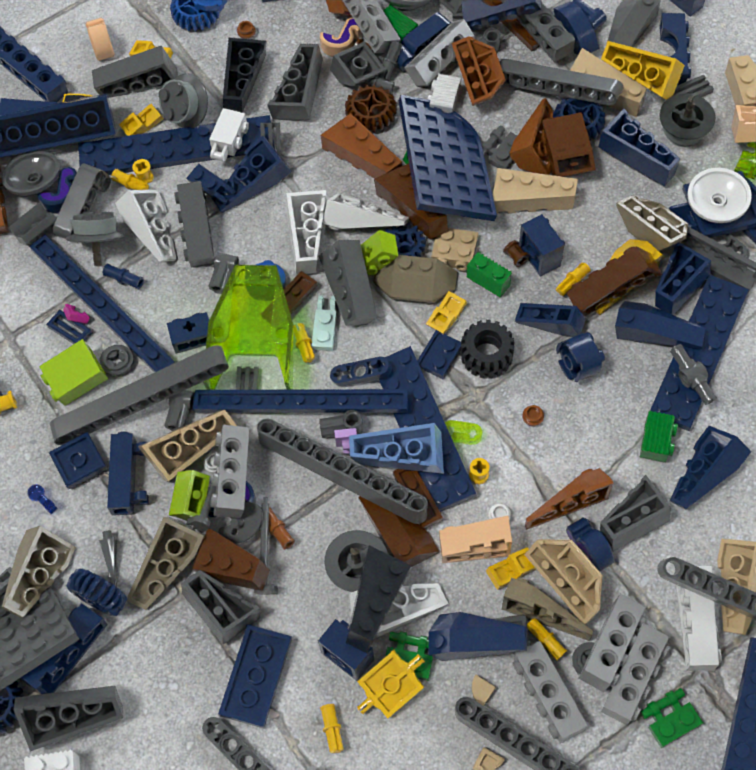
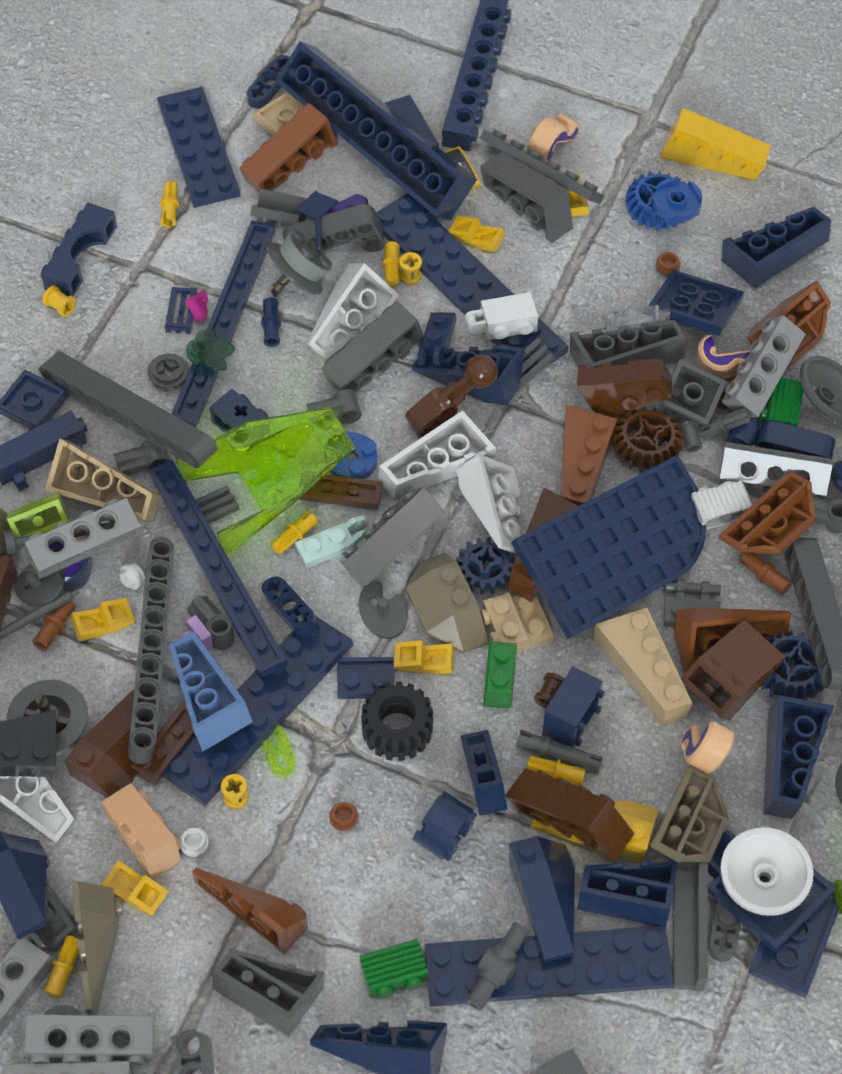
camera: 55 degrees right, 5 degrees down
(31, 173) = (336, 171): dark grey dish -> none
(56, 197) = (316, 207): none -> dark blue piece
(72, 373) = (126, 340): lime brick -> none
(113, 56) = (549, 169): none -> dark grey plate
(123, 322) = (209, 350): none -> clear green plate
(184, 100) = (518, 252): dark grey piece -> none
(241, 71) = (600, 287): black wedge -> none
(269, 166) = (442, 402): none -> reddish brown beam
(271, 459) = (131, 576): none -> white plate
(280, 67) = (632, 318): none -> clear hinge
(291, 28) = (698, 302): none -> dark blue plate
(292, 495) = (103, 620): none -> yellow slope
(333, 94) = (624, 387): none -> reddish brown wedge
(379, 251) = (446, 540): lime brick -> none
(401, 321) = (387, 617): none -> dark grey piece
(505, 98) = (766, 572): none -> dark orange pin
(554, 275) = (556, 750): none -> dark grey pin
(569, 575) = (145, 949): tan wedge -> none
(592, 543) = (203, 956): dark blue animal -> none
(617, 189) = (709, 748): none -> light nougat animal

